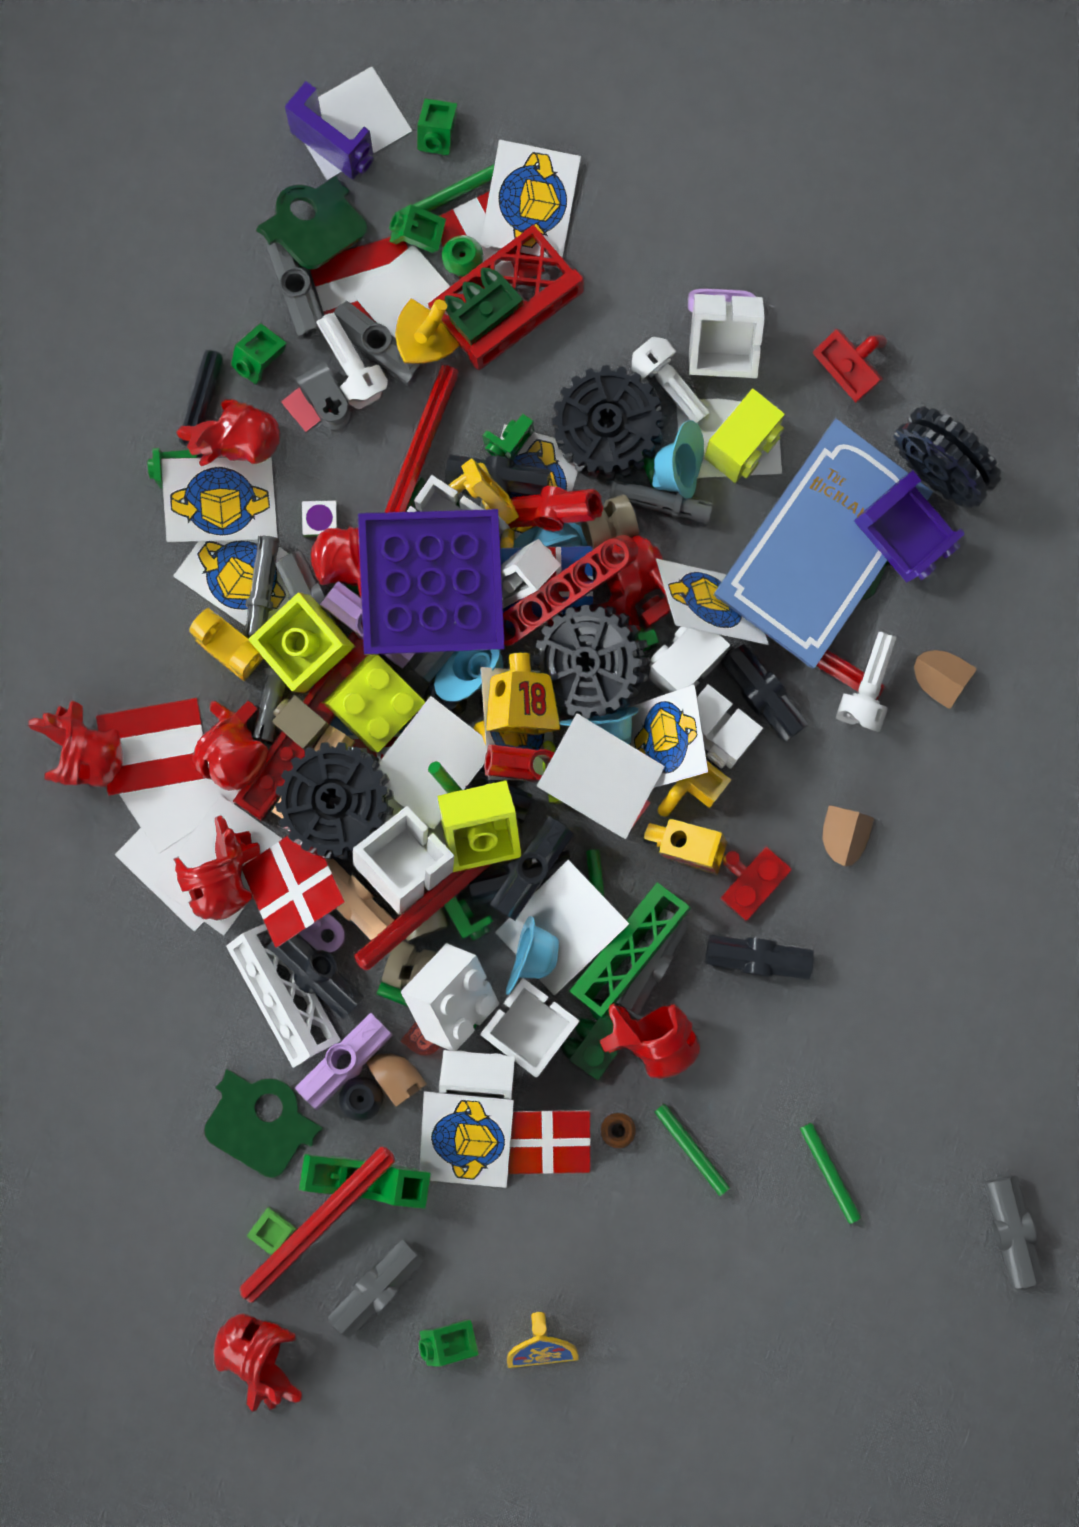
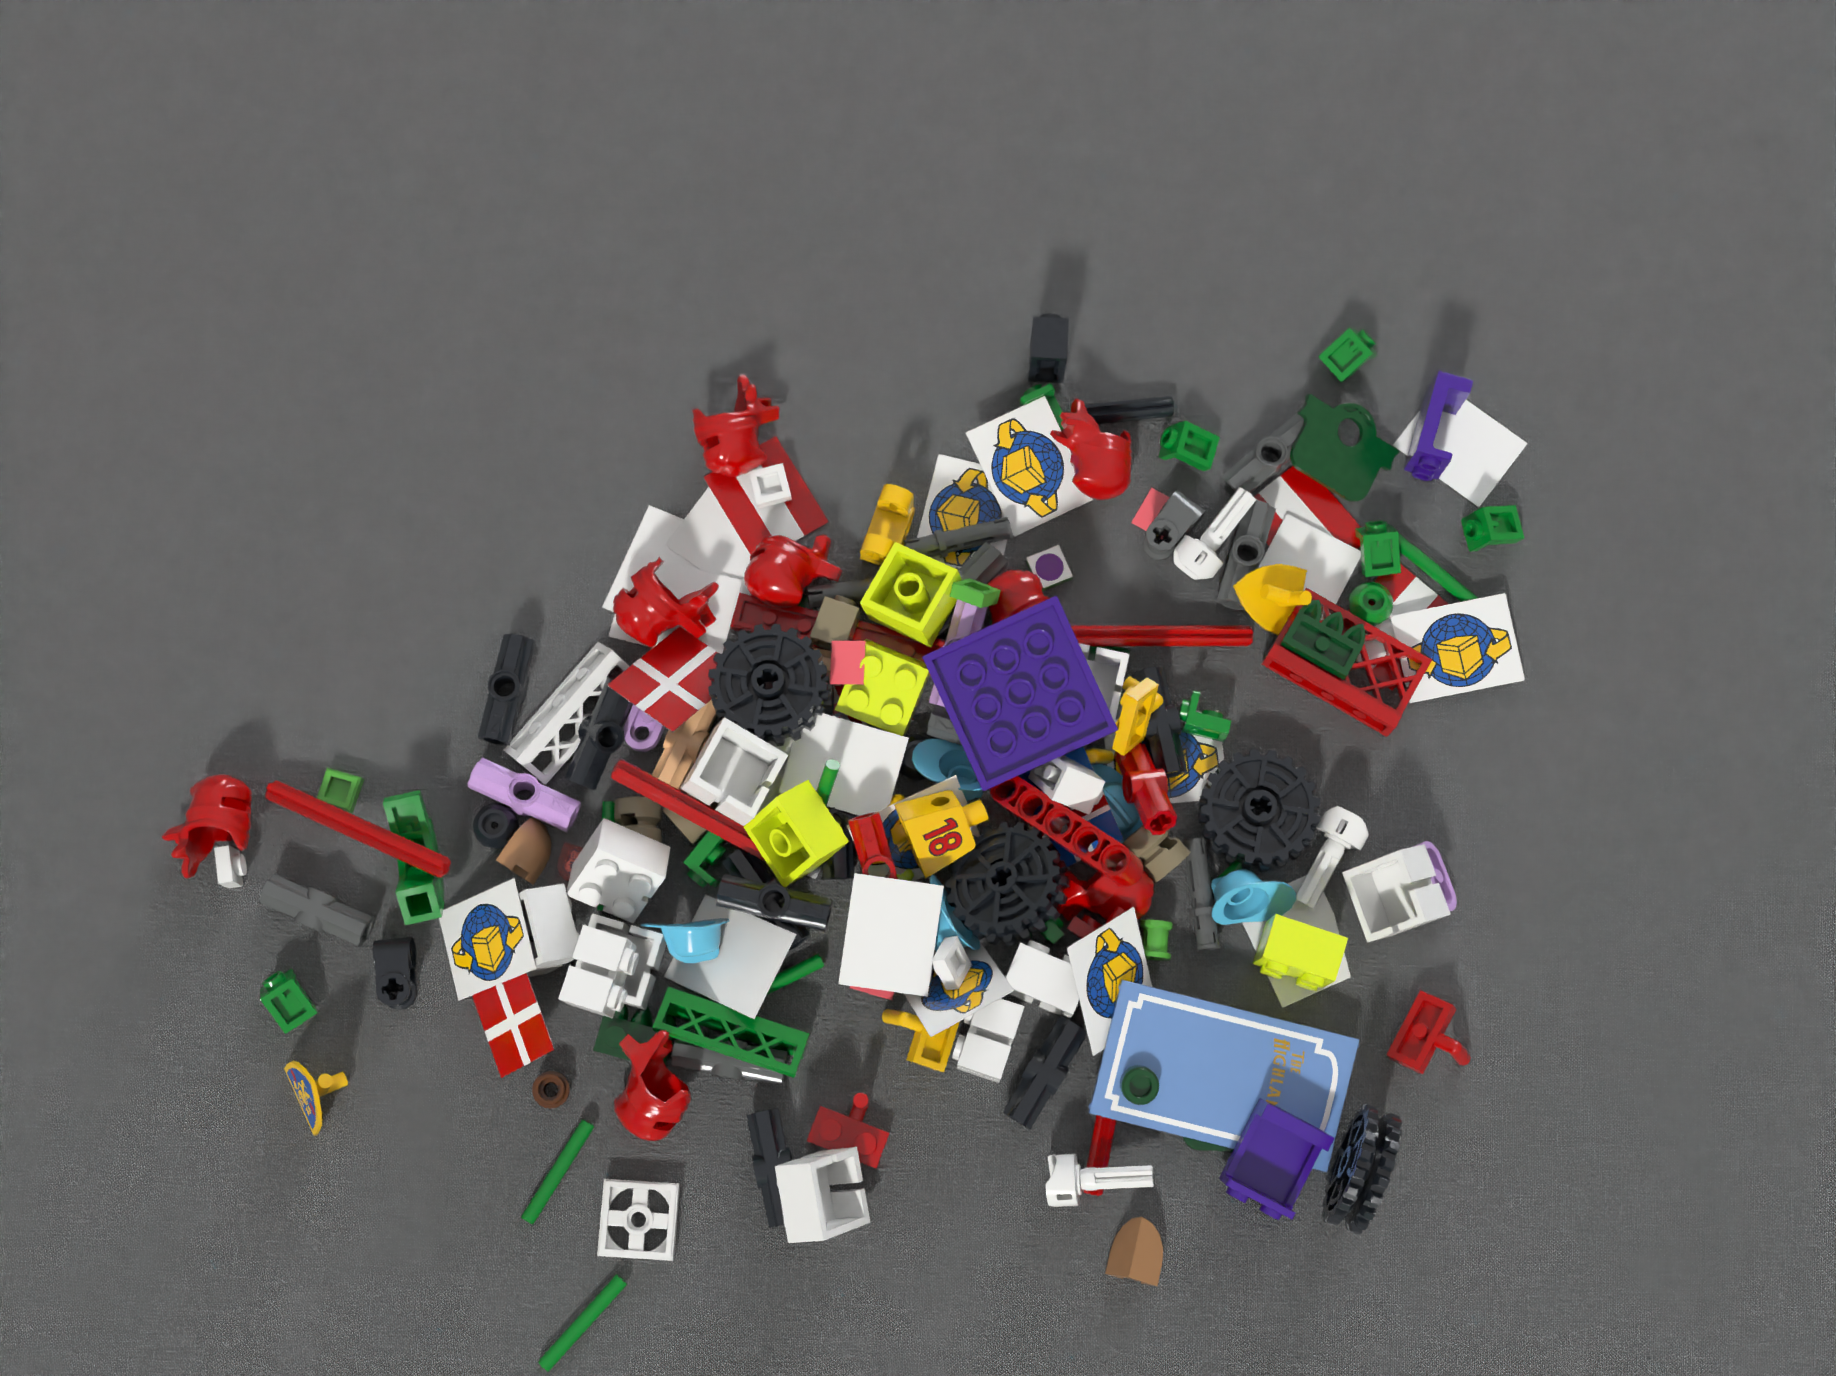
camera: 70 degrees right, 5 degrees down
(118, 437) = (1048, 348): none -> black brick
(143, 736) = (770, 485): none -> white plate
(220, 1031) = (502, 711): none -> black piece
(229, 181) = (1348, 353): none -> green bracket
(246, 1137) = (421, 734): dark green piece -> none
(305, 1356) = (230, 866): none -> white plate
(323, 586) = (975, 593): none -> bright green tile
(340, 724) = (846, 662): none -> coral sticker
(453, 1231) = (395, 964): none -> black piece
(540, 1043) = (603, 972): none -> white piece
(644, 734) = (951, 963): none -> white plate
(685, 554) = (1156, 939): none -> bright green bush
(703, 846) = (859, 1063): yellow torso -> none
(766, 1077) = (606, 1244): none -> white piece
(807, 615) = (1139, 1085): none -> dark green tile
(809, 935) = (807, 1203): none -> white piece
(846, 834) = (931, 1211): medium nougat brick -> none

